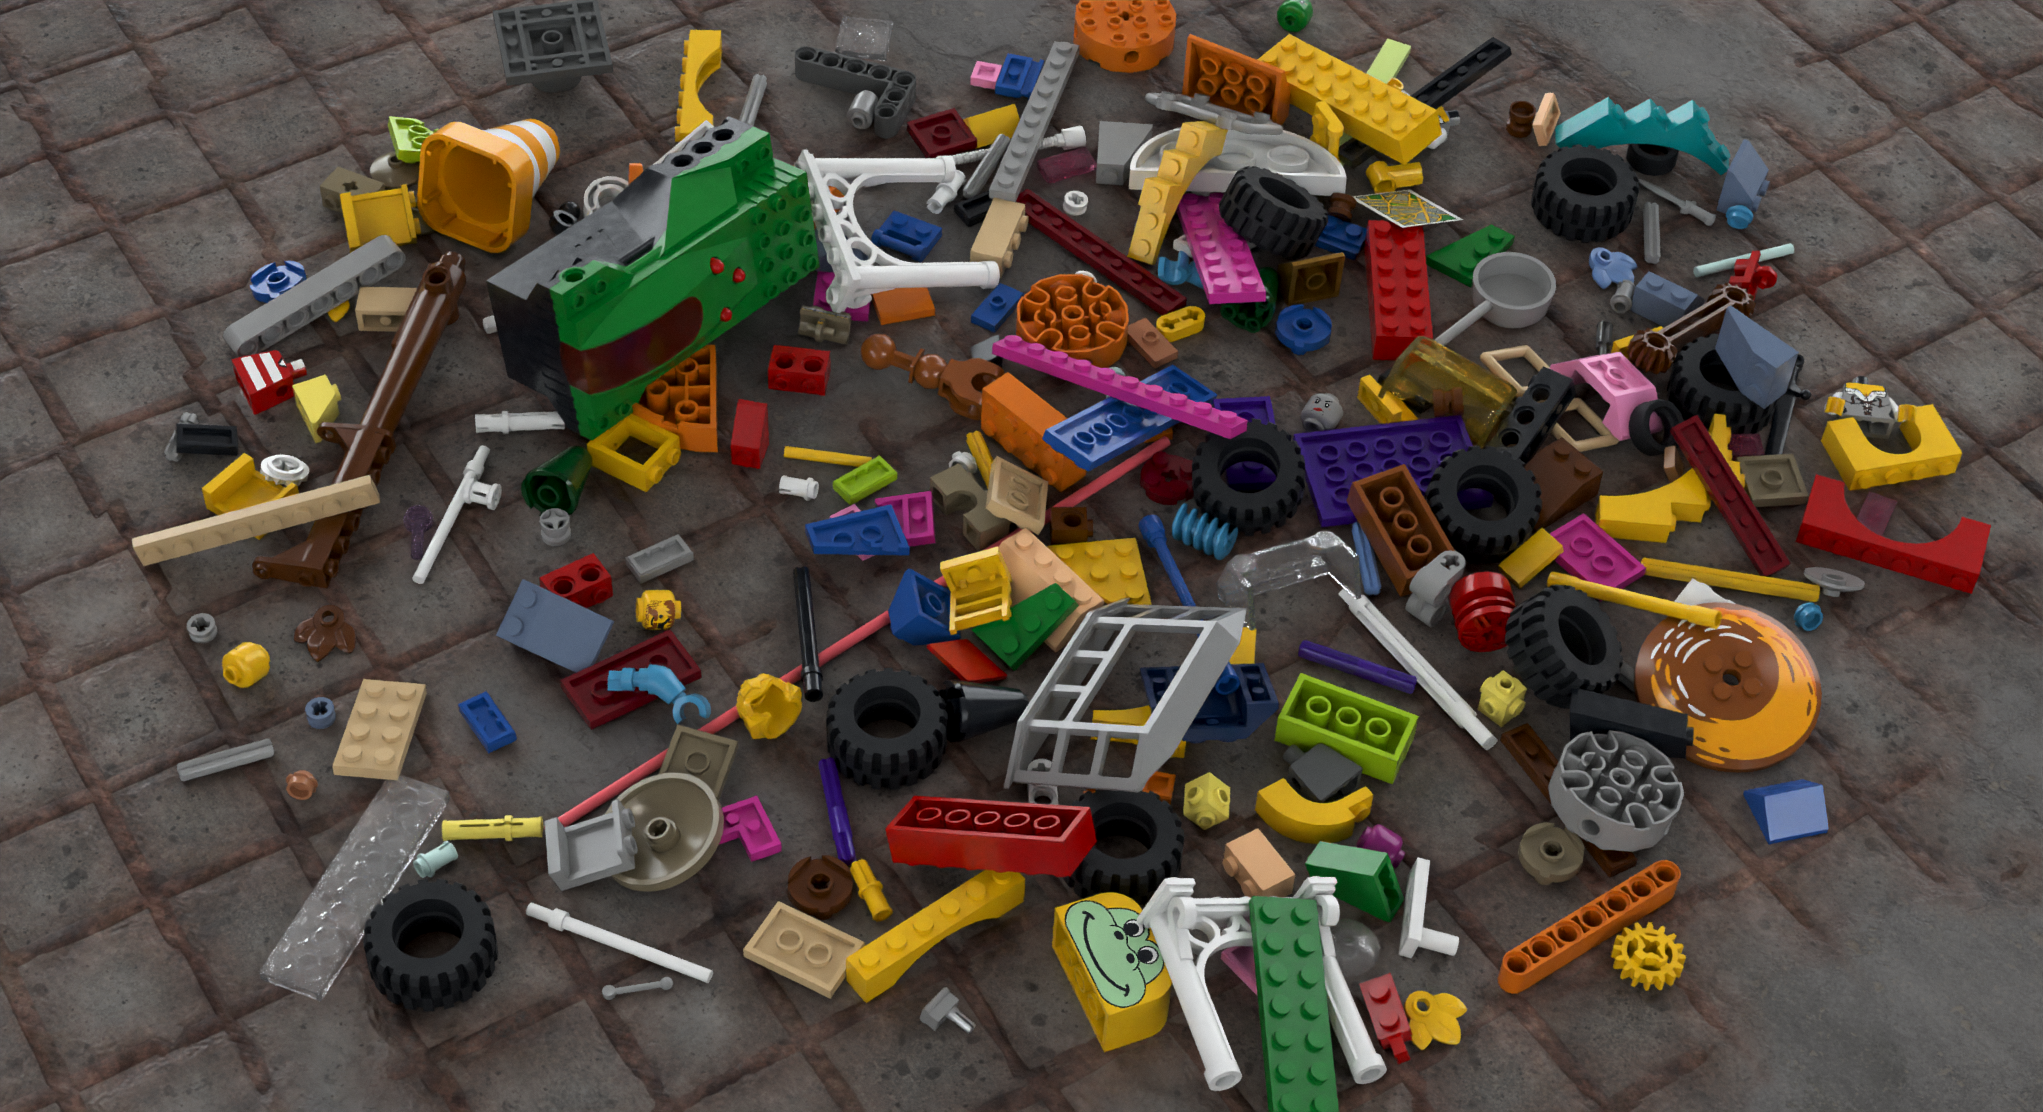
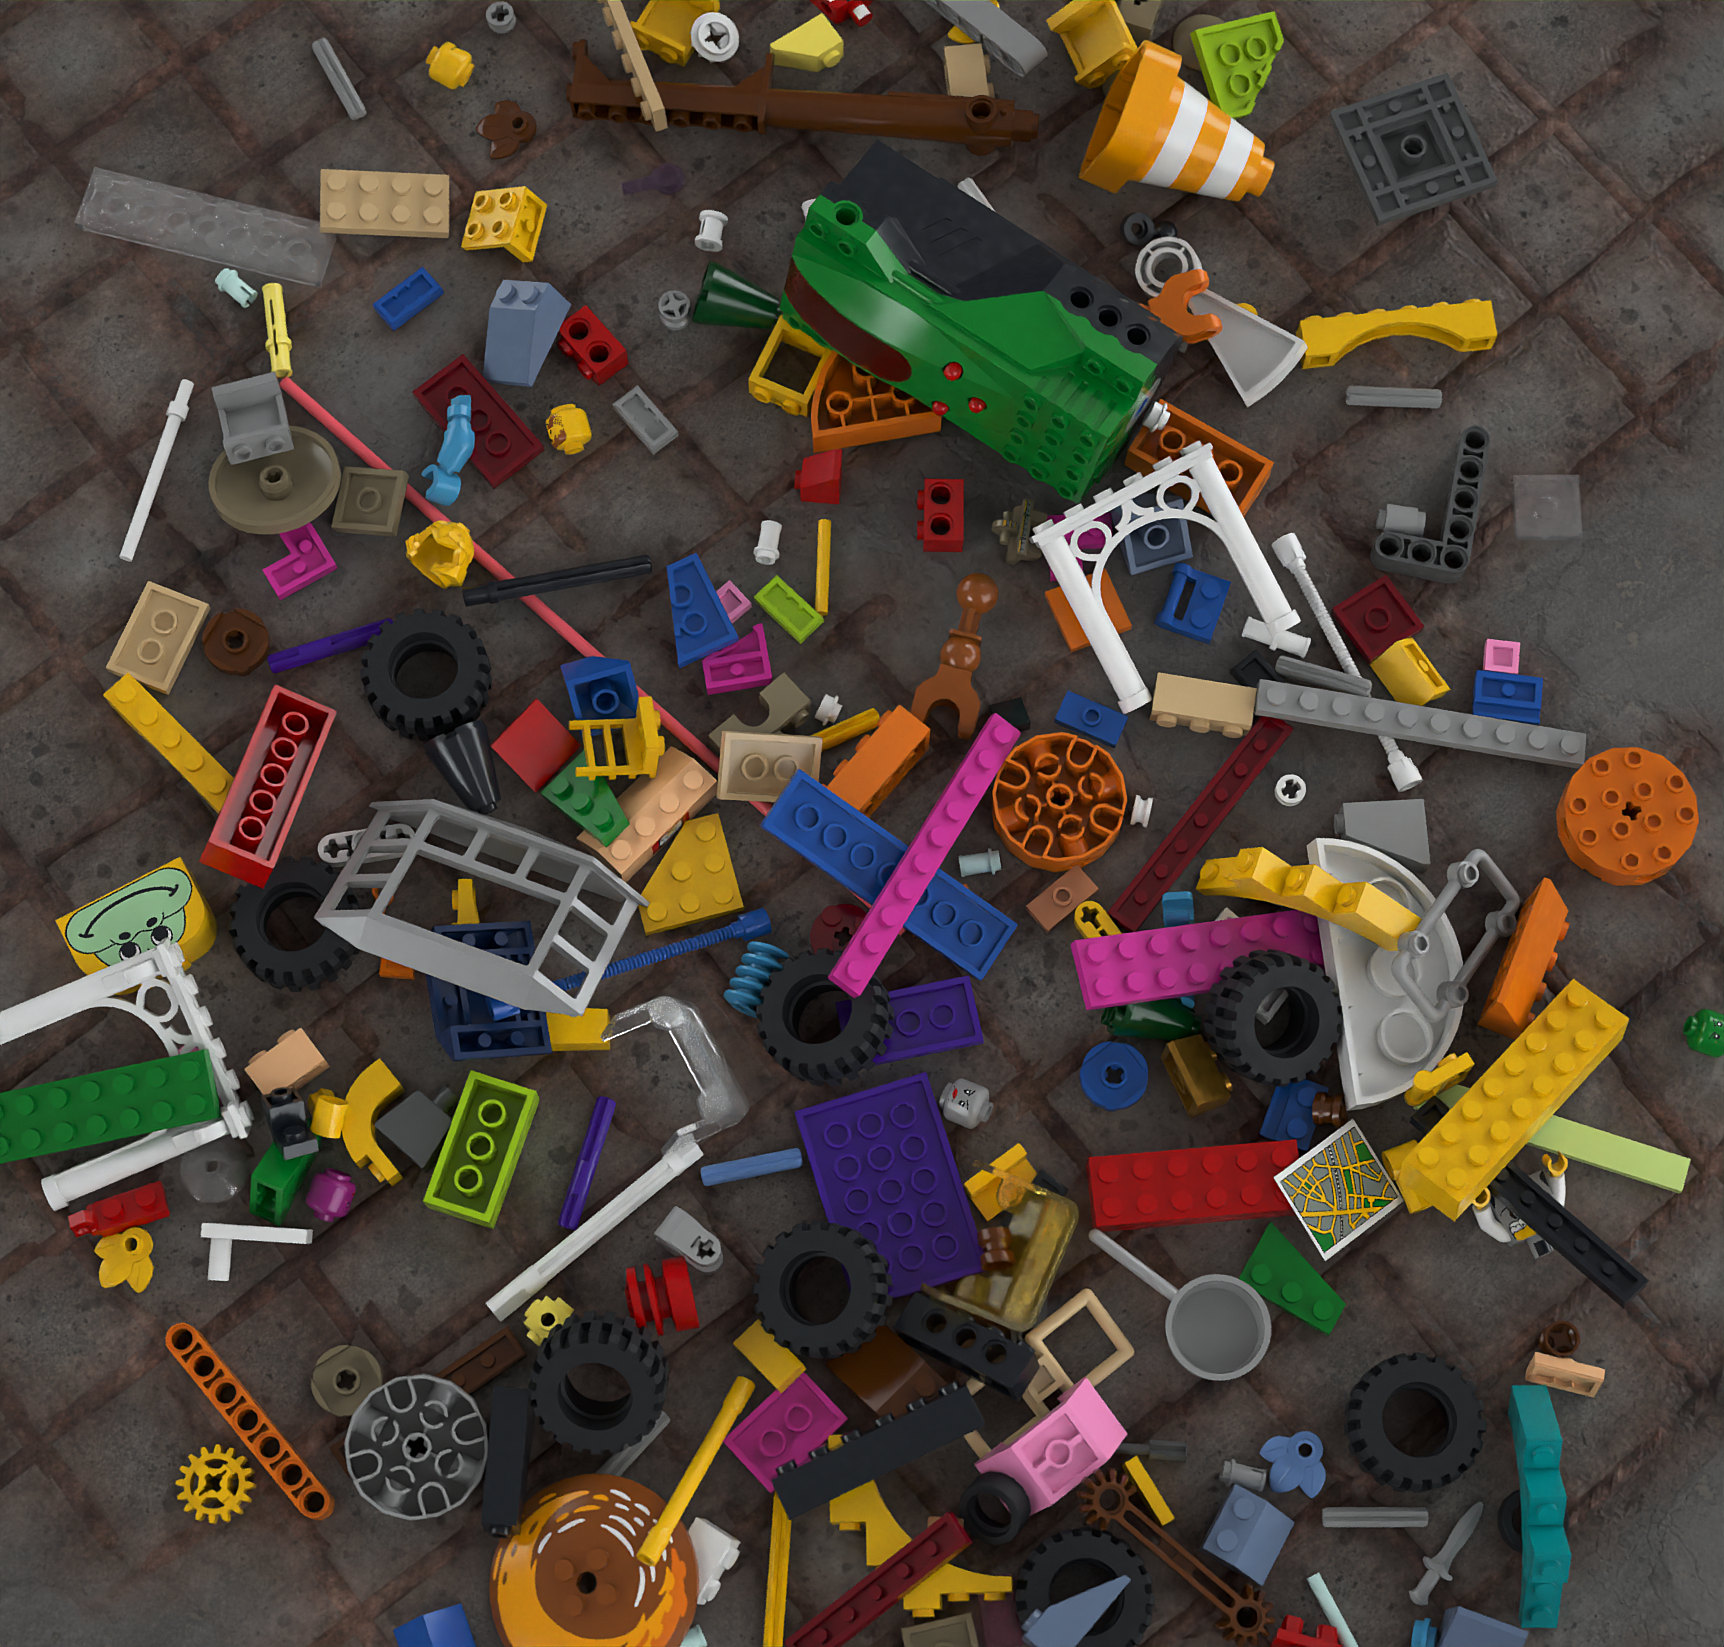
camera: 85 degrees right, 25 degrees up
(301, 785) = (313, 151): nougat plate -> none
(320, 721) = (402, 139): sand blue bush -> none
(425, 643) = (507, 220): none -> yellow bracket
(437, 979) = (107, 268): black tyre -> none
(473, 469) = (746, 216): white bar -> none
(609, 991) = (103, 473): light grey hinge -> none
(870, 890) = (235, 689): yellow axle -> none
(942, 1007) = (102, 777): light grey piece -> none
(1066, 165) = (1357, 772): clear pink plate -> none
(1069, 525) = (742, 819): reddish brown brick -> none
(1206, 801) = (368, 1008): light yellow brick -> none
(1309, 829) = (327, 1113): none -> yellow piece
(1313, 856) = (288, 1123): none -> black slope
(1397, 524) = (772, 1197): dark orange brick -> none
(1619, 476) = (877, 1450): none -> black brick

